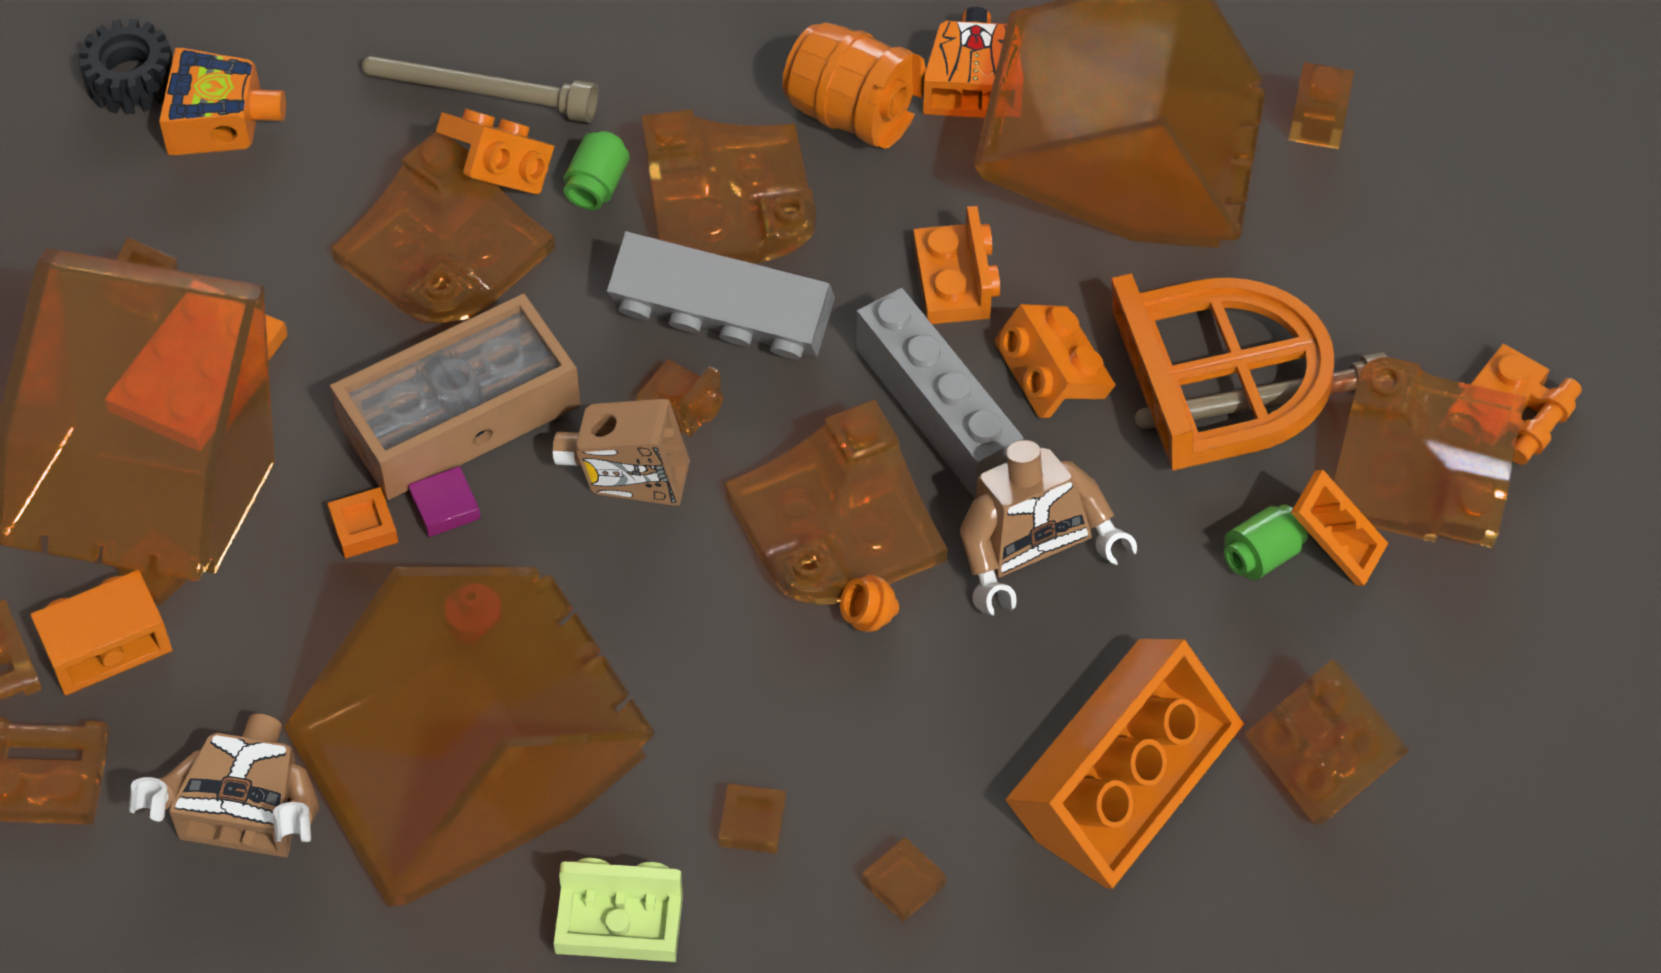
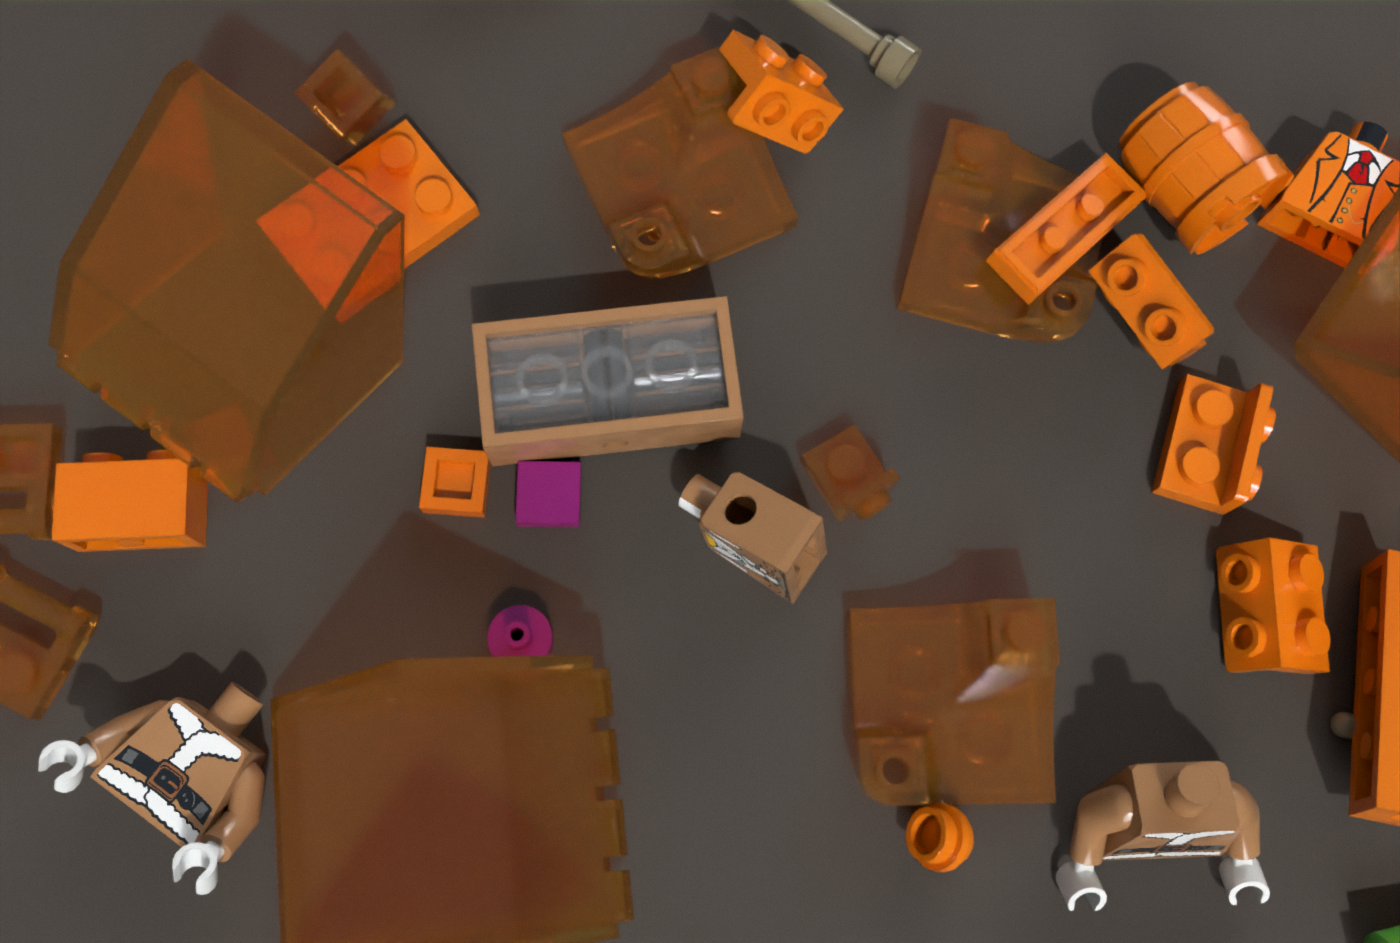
camera: 20 degrees right, 20 degrees up
(595, 170) = (876, 154): bright green brick -> none
(720, 295) = (943, 376): light grey brick -> none
(769, 159) = (1066, 228): none -> orange tile
(860, 183) = (1152, 301): none -> orange bracket
(934, 387) = (1130, 602): light grey brick -> none

